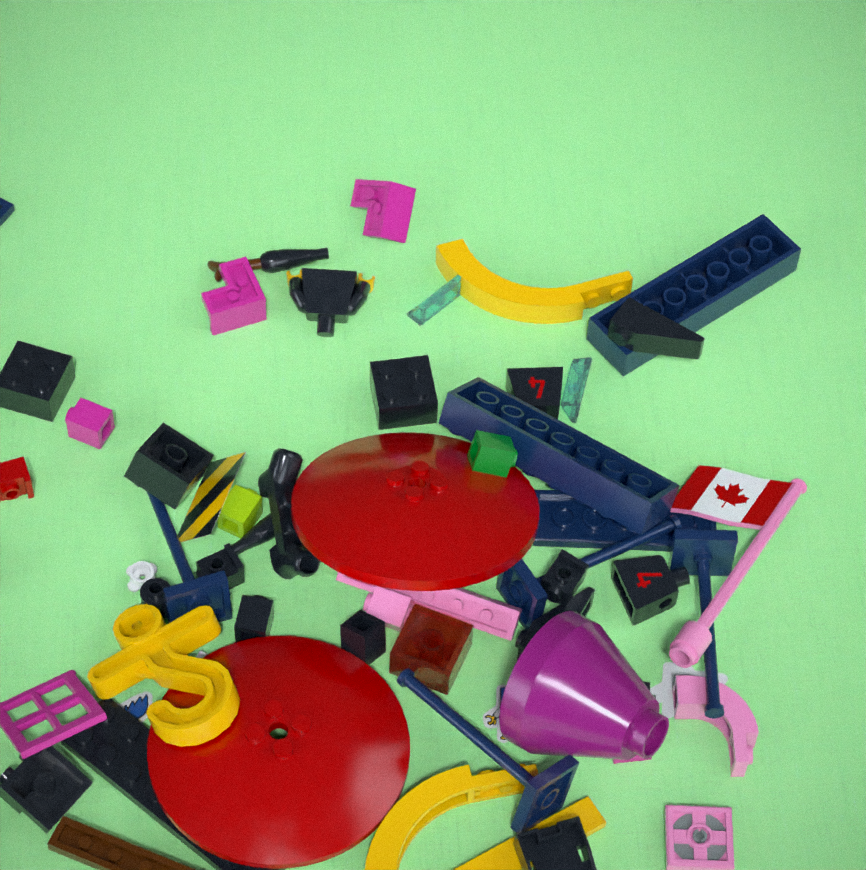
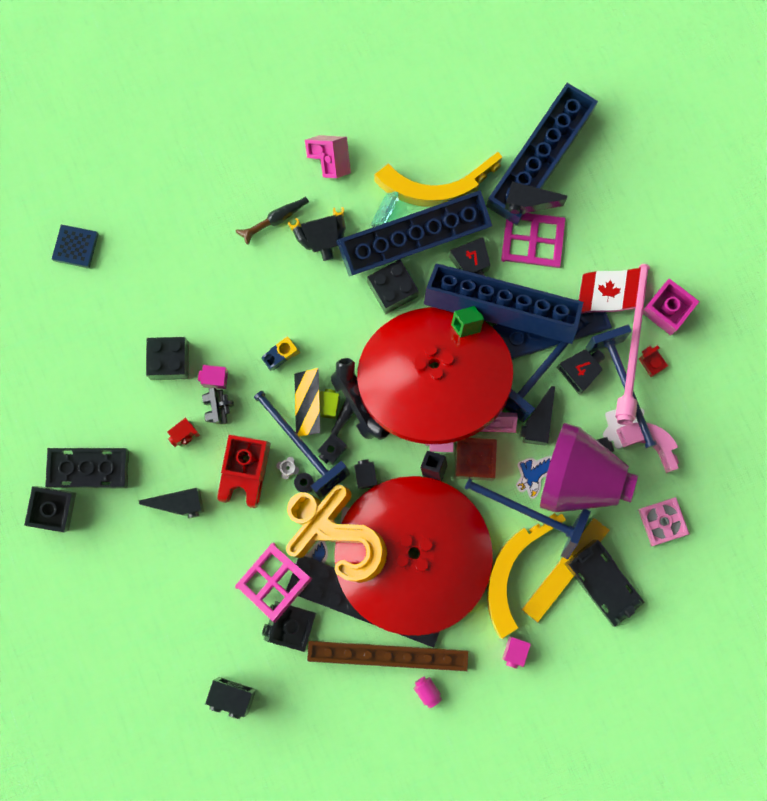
camera: 20 degrees left, 25 degrees up
(76, 551) = (243, 474): none -> red brick
(80, 462) = (219, 405): none -> black hips
(168, 465) = (276, 393): black brick -> none
(202, 423) = (280, 353): none -> leg
(238, 302) = (269, 254): dark pink panel -> none
(463, 330) = (414, 233): none -> dark blue brick
(564, 578) = (532, 396): black brick -> none
(575, 387) = (494, 246): clear light blue slope -> none
(641, 402) = (533, 239): none -> dark pink window
(765, 610) = (652, 360): none -> red bracket
(816, 542) = (670, 307): none -> dark pink brick

